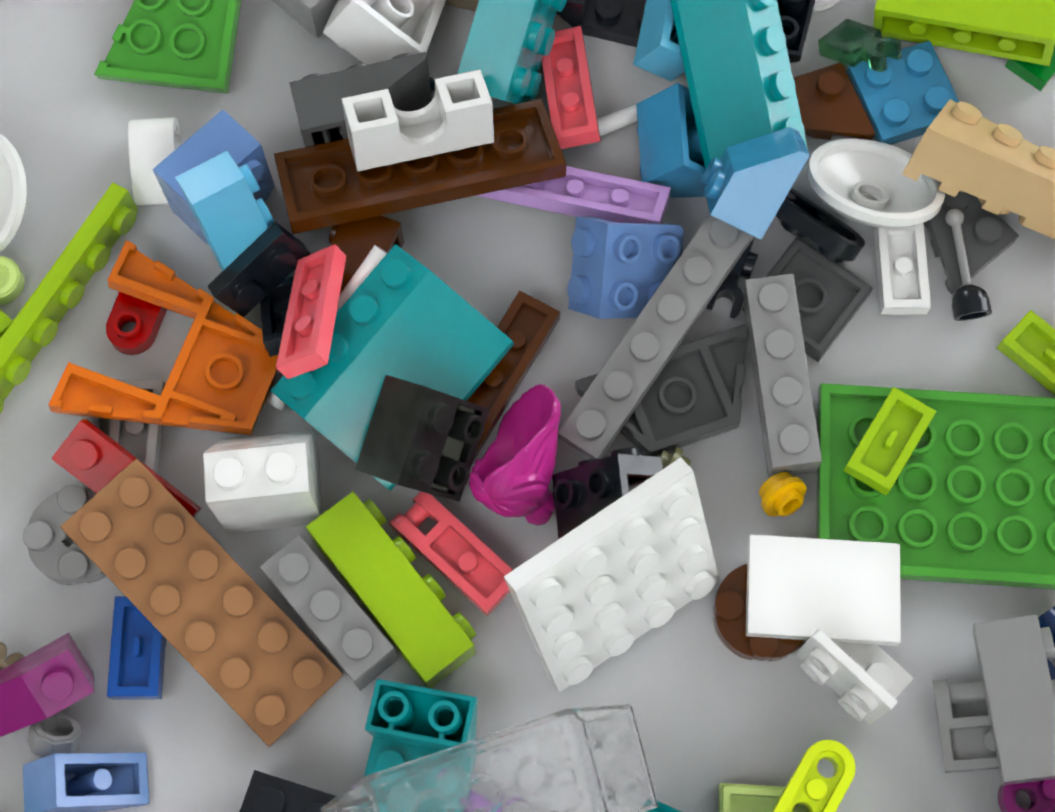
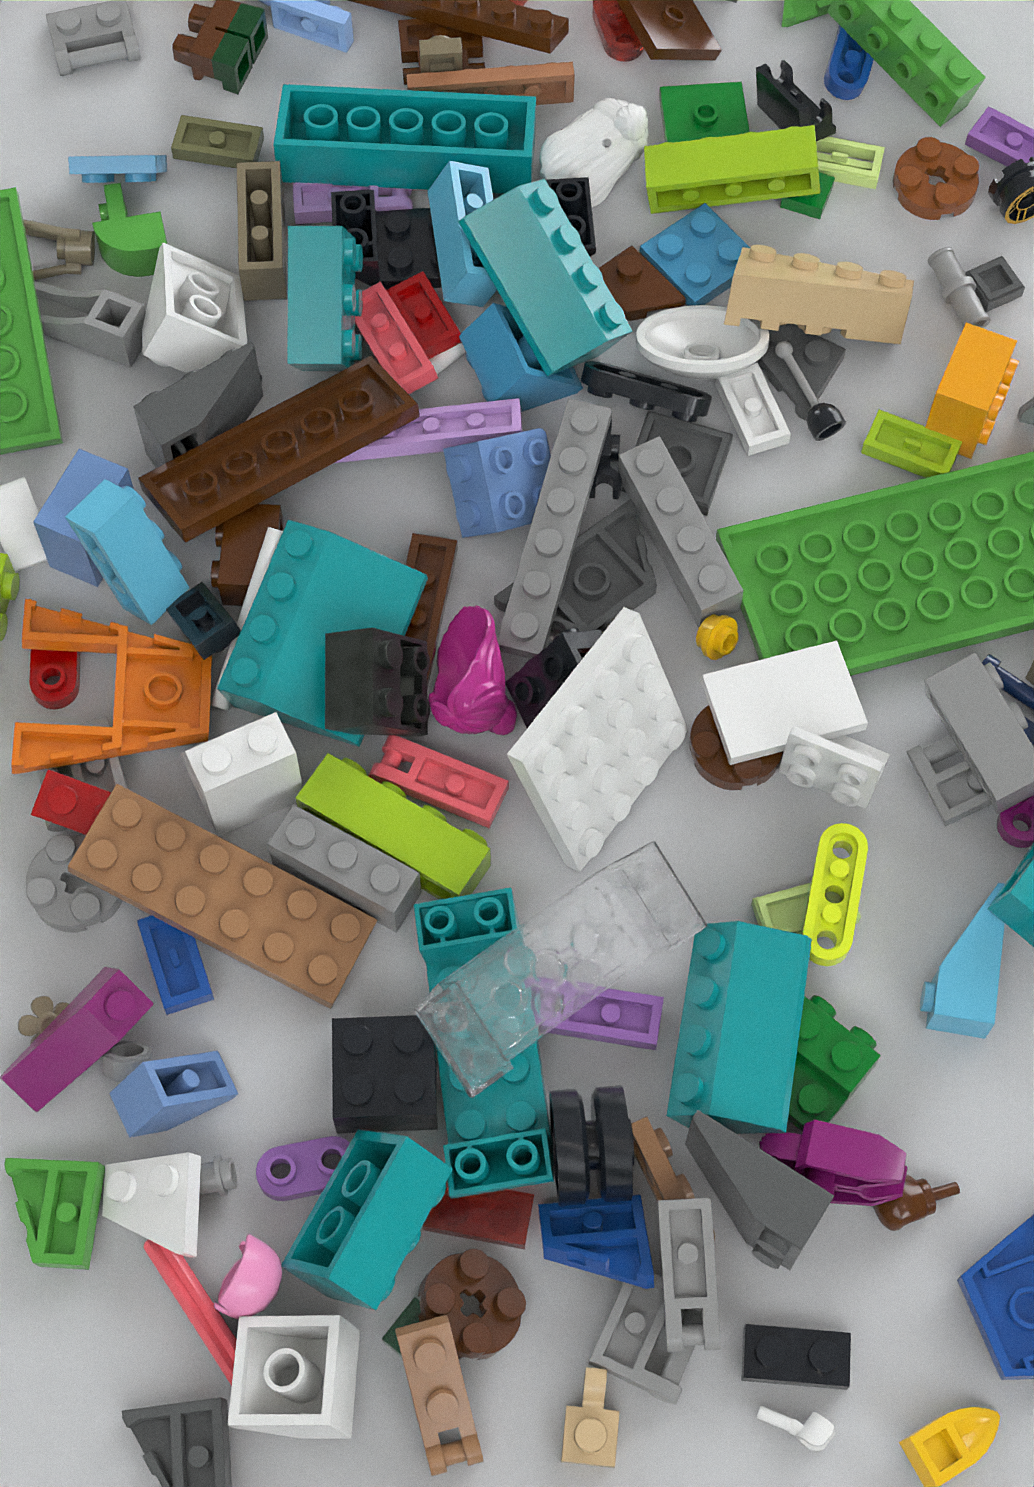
camera: 20 degrees left, 5 degrees down
(258, 269) = (163, 585): black plate -> none
(311, 312) = (233, 602): coral plate -> none
(453, 121) = (302, 392): white arch -> none
(611, 72) = (425, 314): none -> red plate
(754, 179) = (596, 363): slope -> none
(857, 42) = (639, 223): clear green plate -> none
(889, 441) = (796, 556): lime plate -> none

